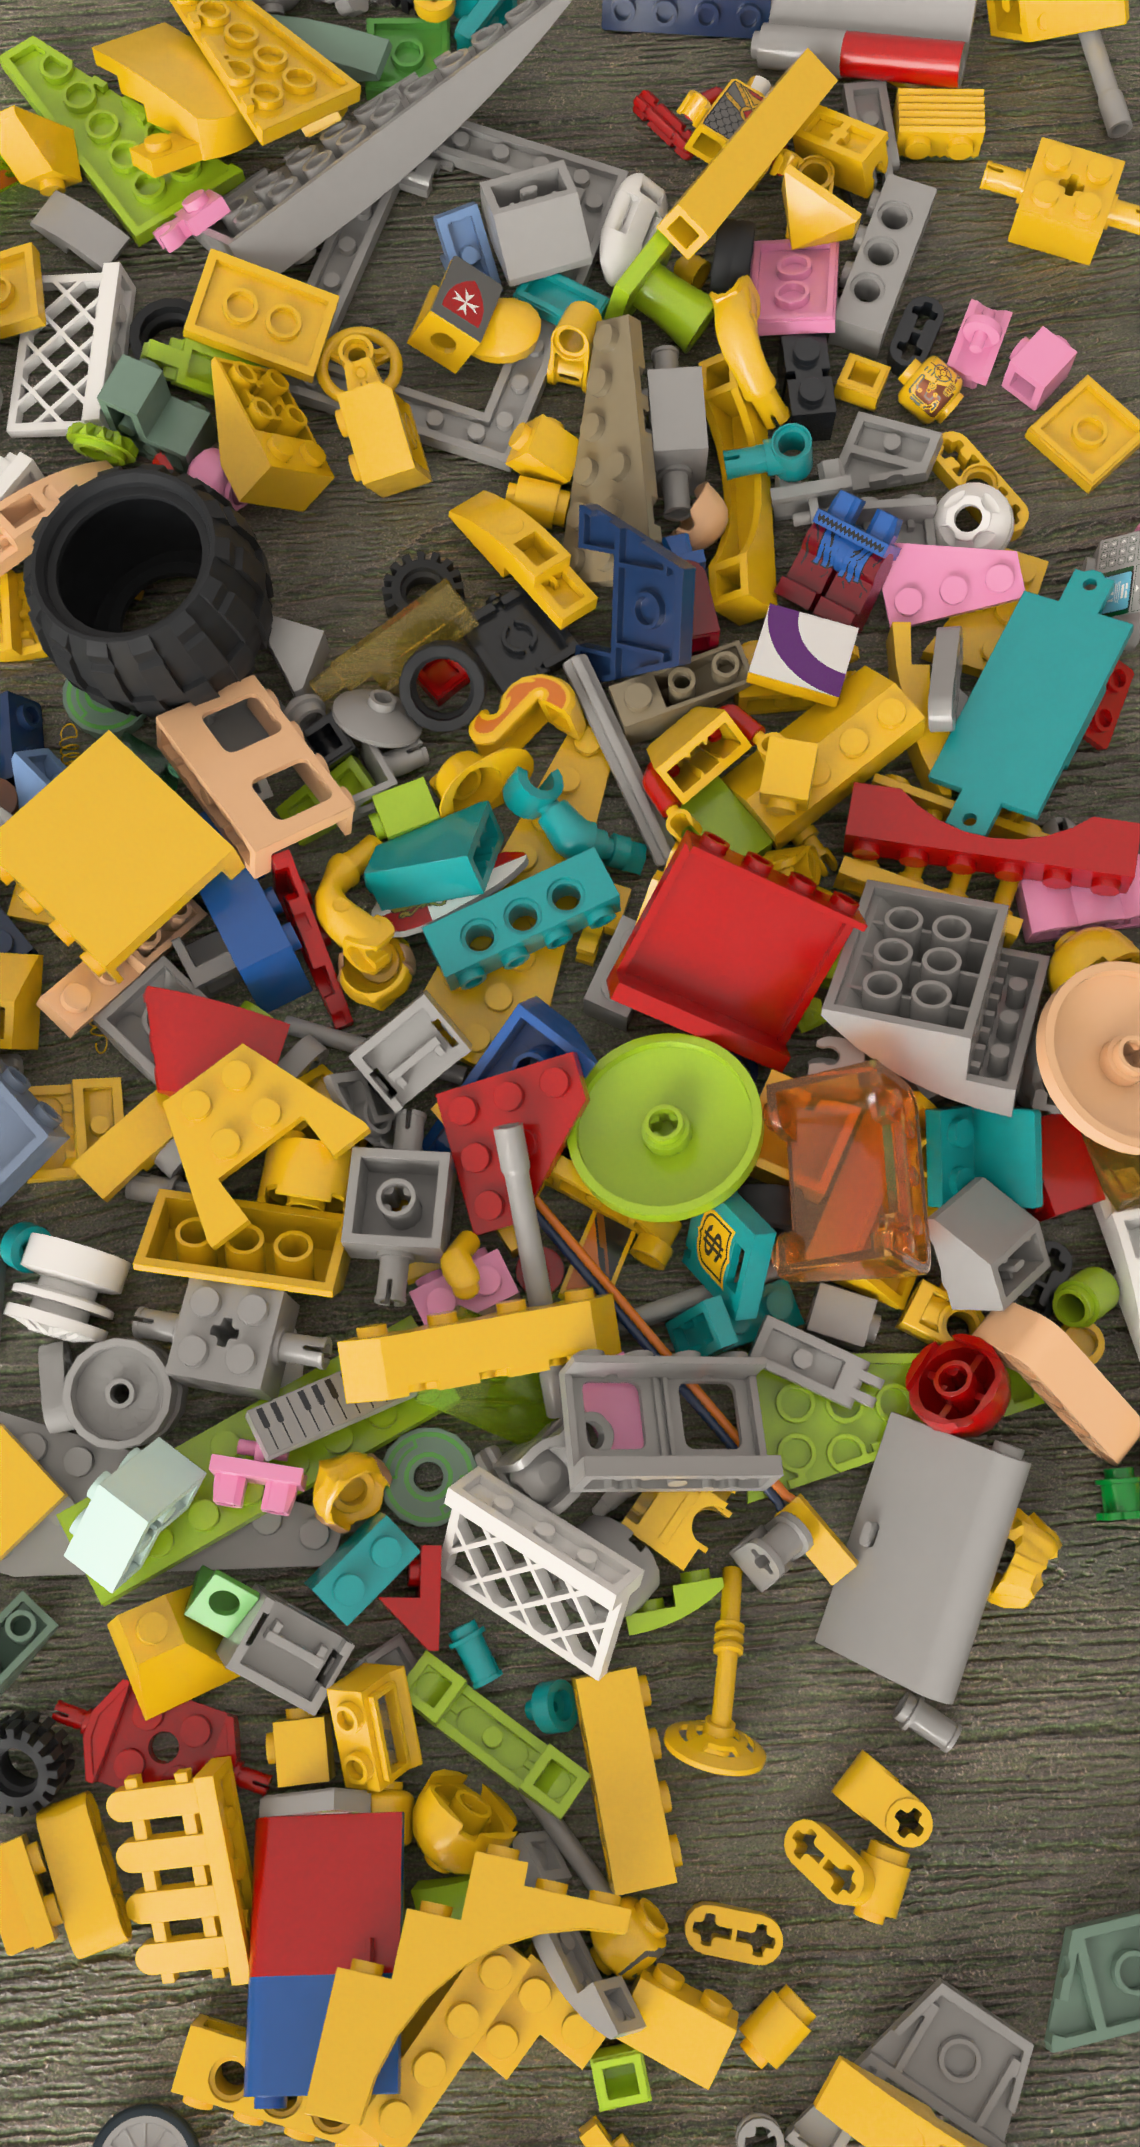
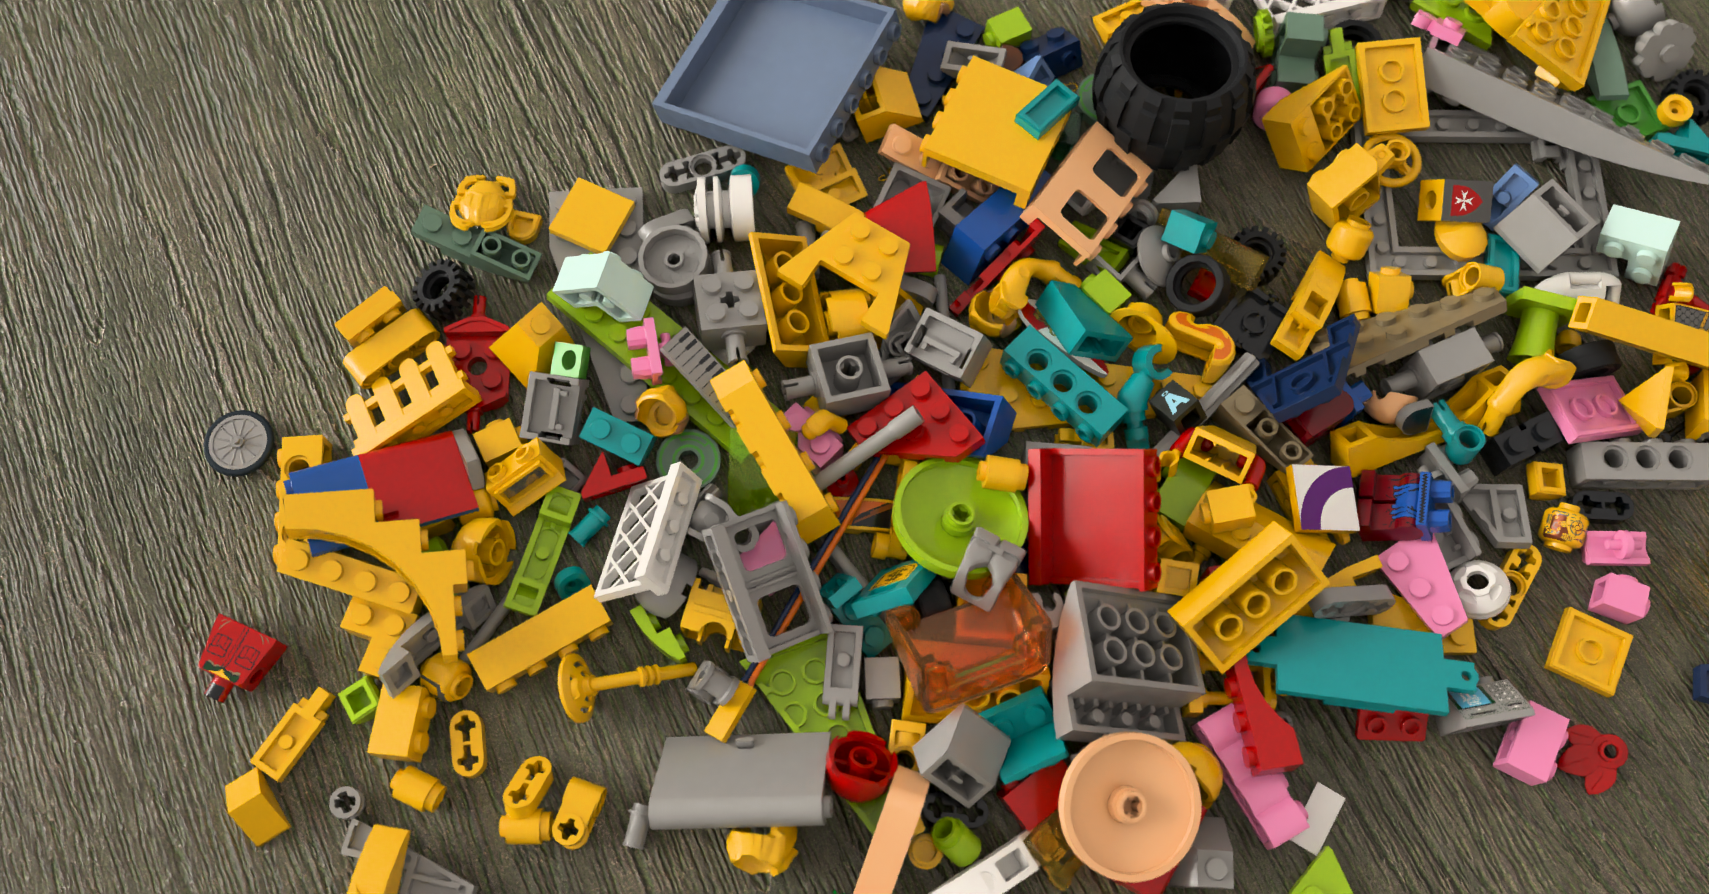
camera: 65 degrees right, 5 degrees down
(113, 775) = (1047, 109): none -> teal tile
(367, 662) = (1190, 231): none -> teal brick
(451, 467) = (1349, 239): none -> yellow head
(599, 122) = (1641, 240): none -> light aqua brick
(609, 784) = (1177, 408): none -> pearl dark grey brick
(629, 1046) = (1002, 473): none -> yellow brick
(731, 496) = (1414, 417): none -> tile
(739, 1103) = (989, 552): none -> light grey piece
(845, 873) = (1177, 577): none -> yellow bracket
(912, 798) = (1249, 596): none -> yellow slope

